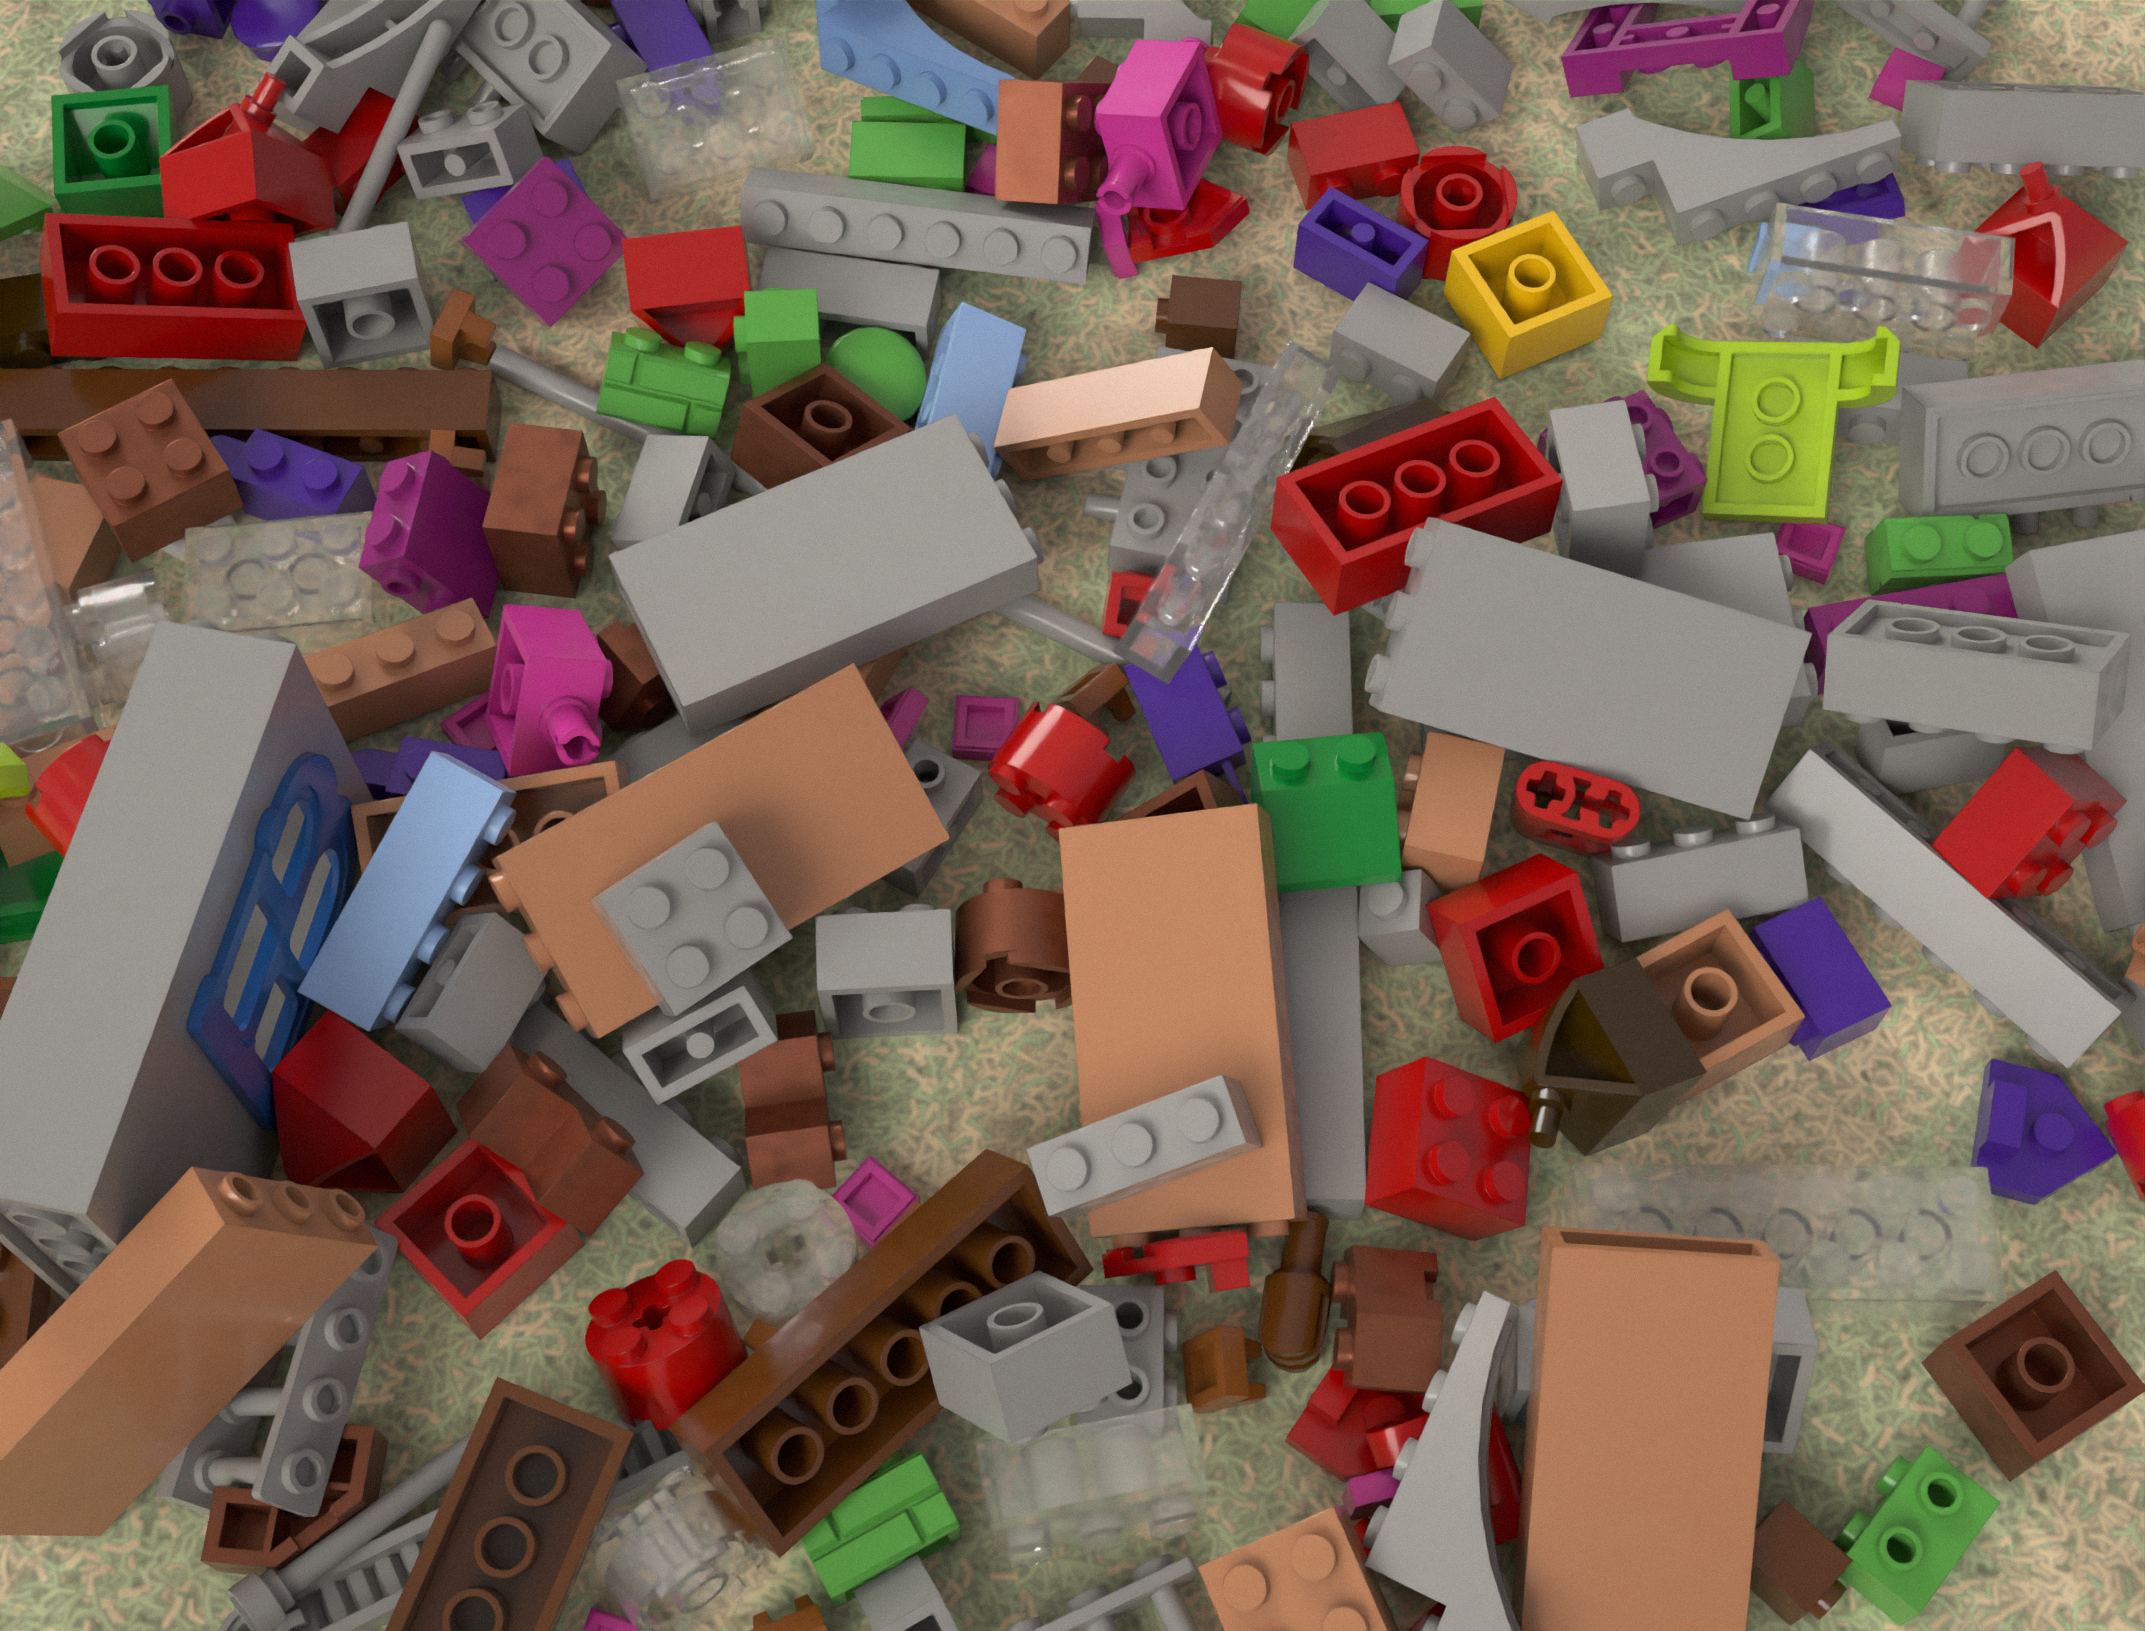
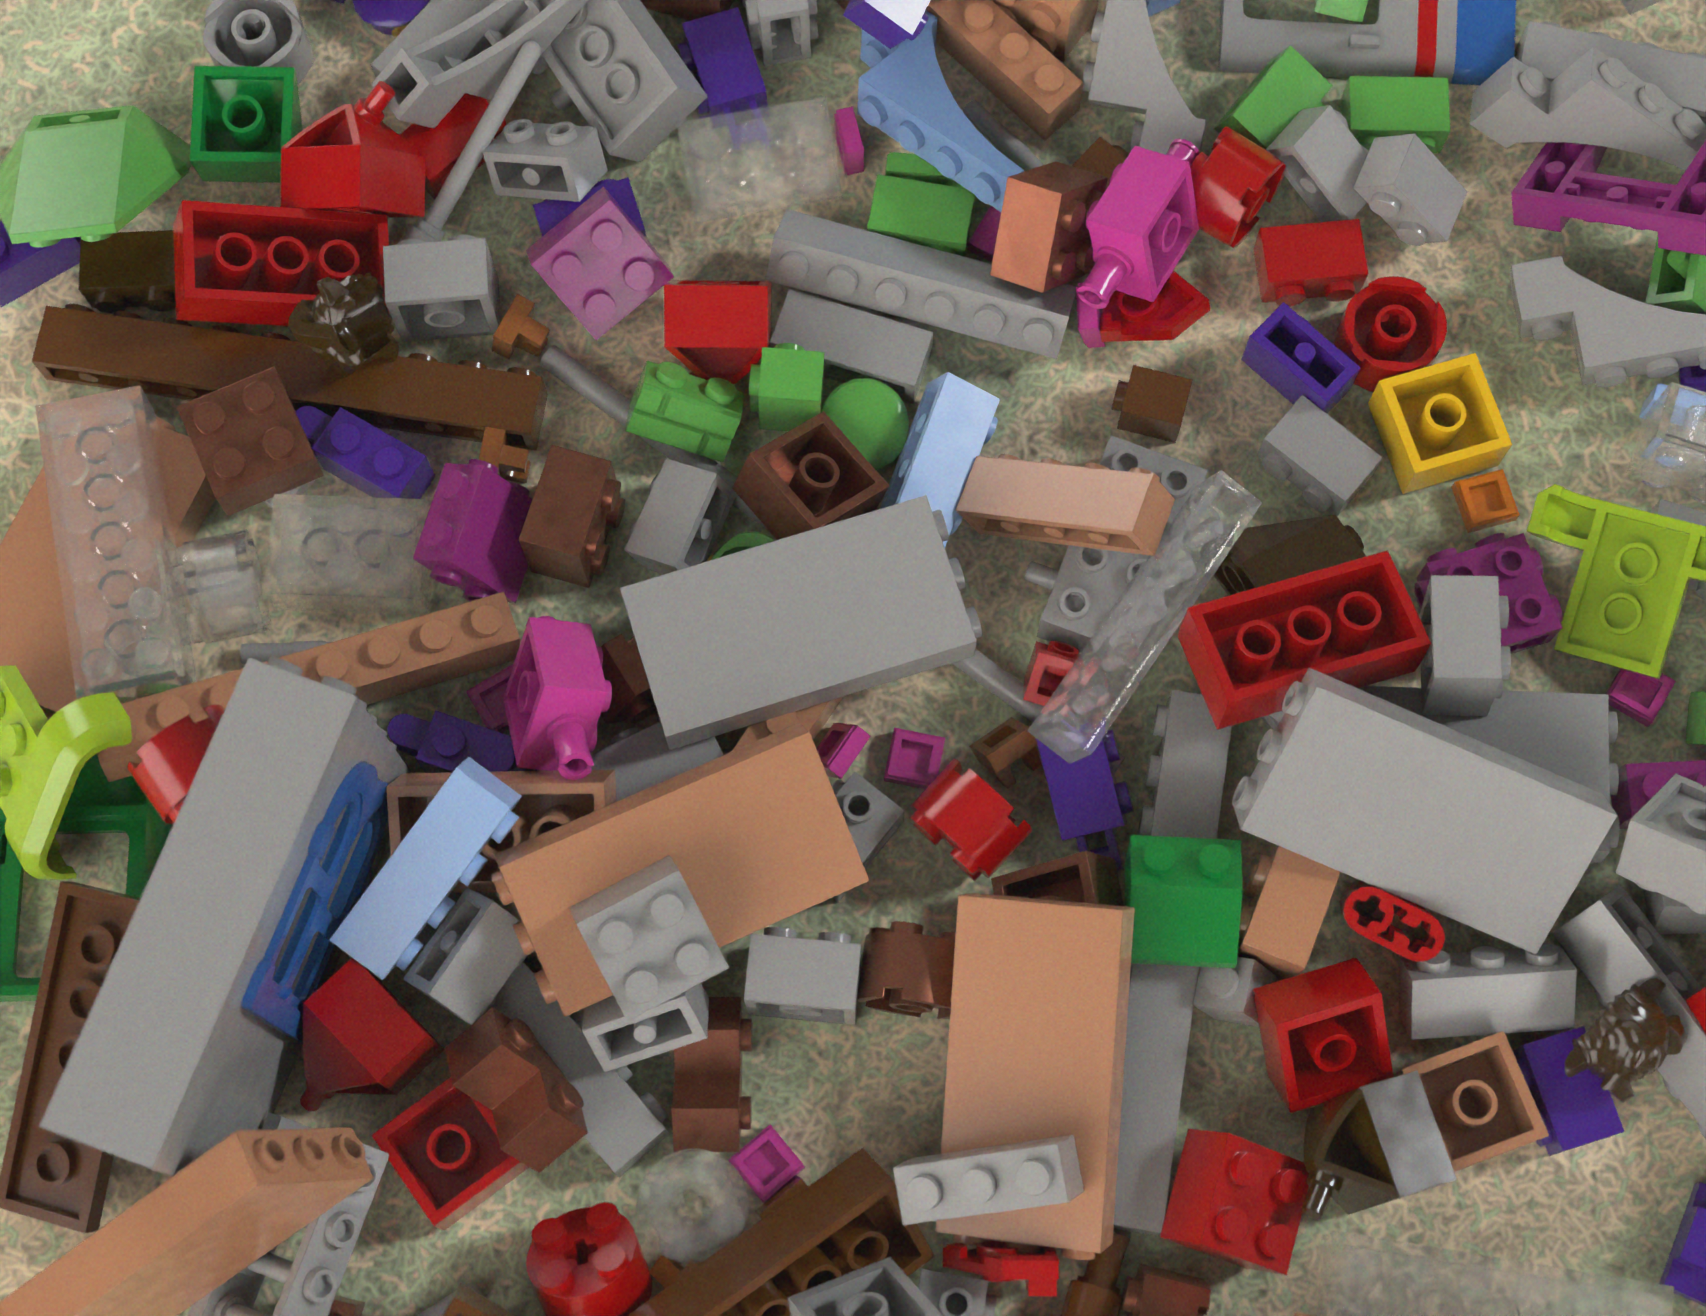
camera: 10 degrees right, 10 degrees up
(252, 328) = (346, 324): none -> dark brown hair
(816, 99) = (849, 141): none -> dark pink tile
(1593, 373) = (1485, 500): none -> orange tile
(1873, 894) = (1627, 1040): none -> dark brown hair

